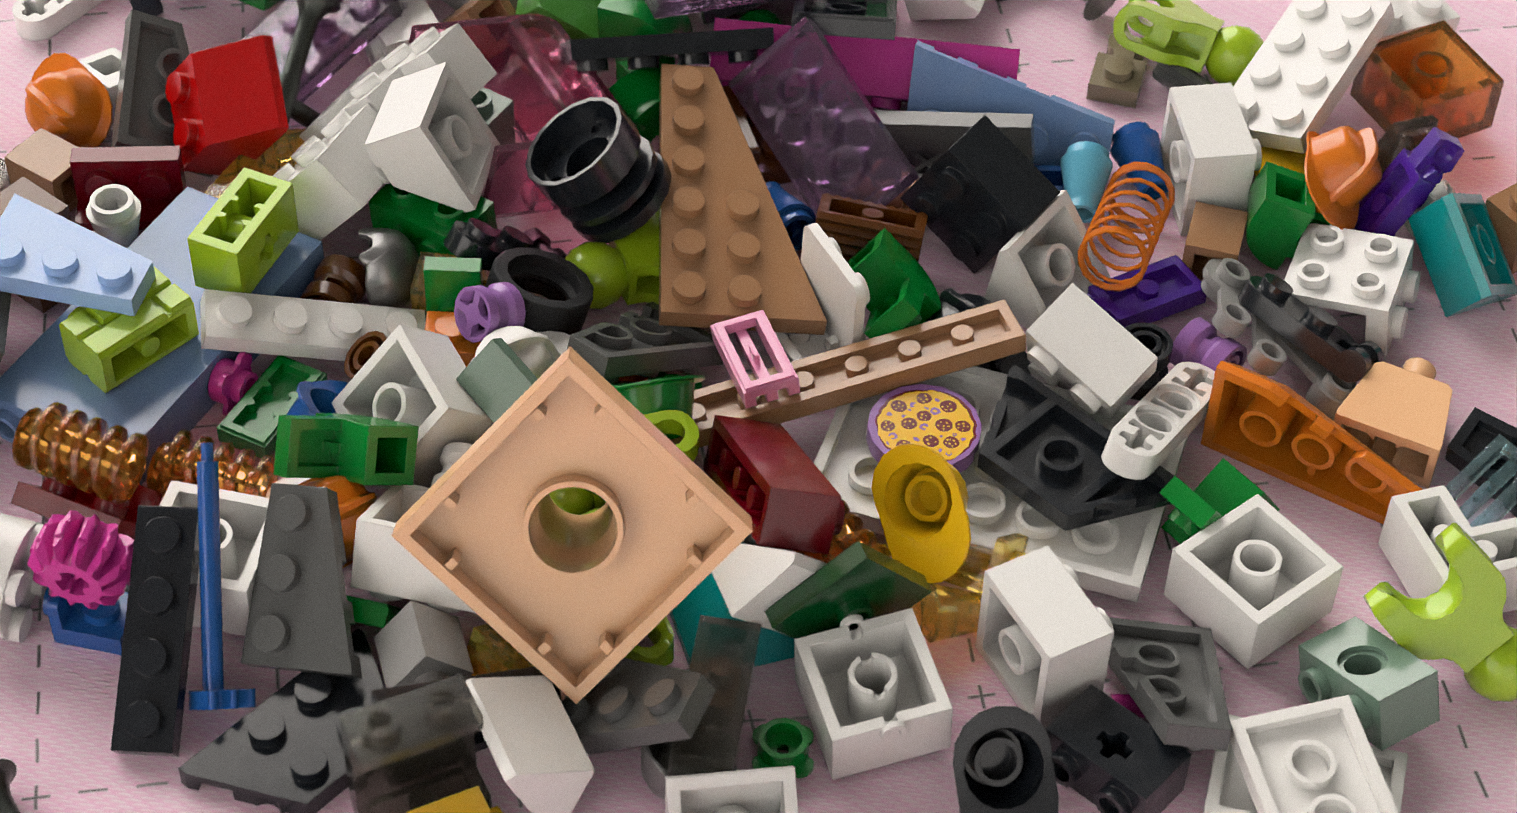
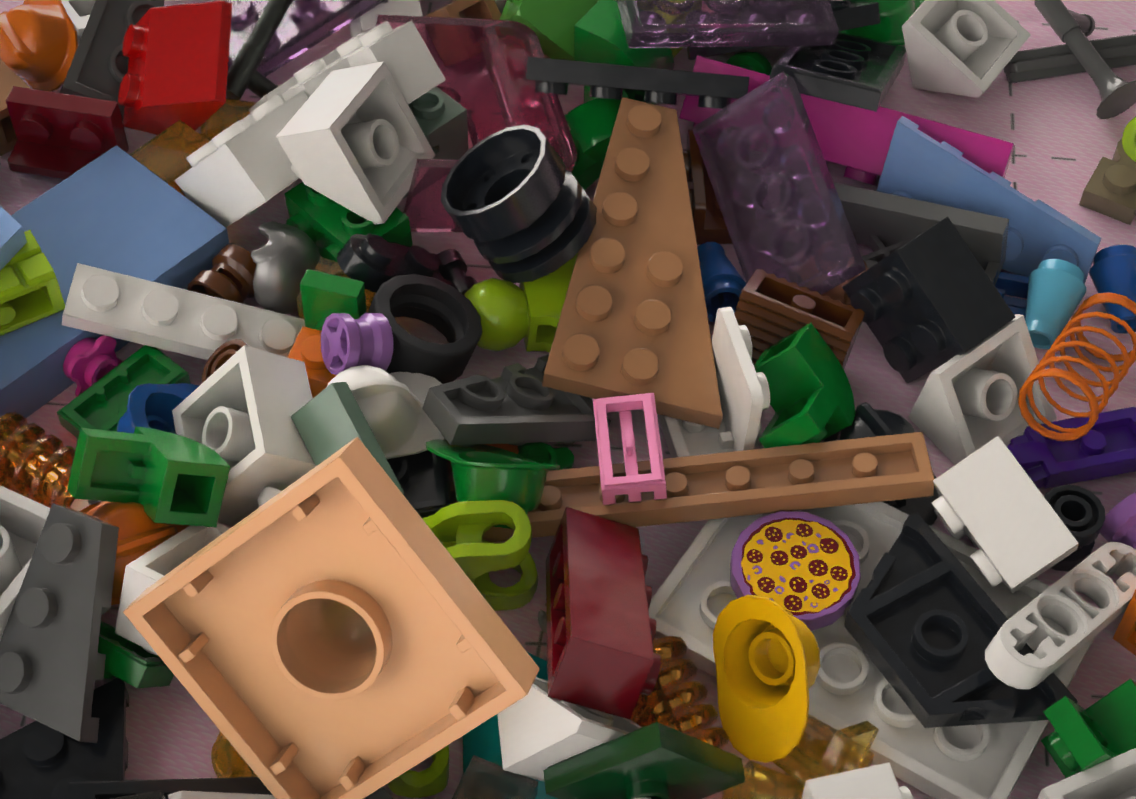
camera: 15 degrees right, 5 degrees up
(115, 213) = (34, 163): white cone -> none
(243, 233) = (136, 209): lime brick -> none
(421, 647) = (165, 731): light grey brick -> none

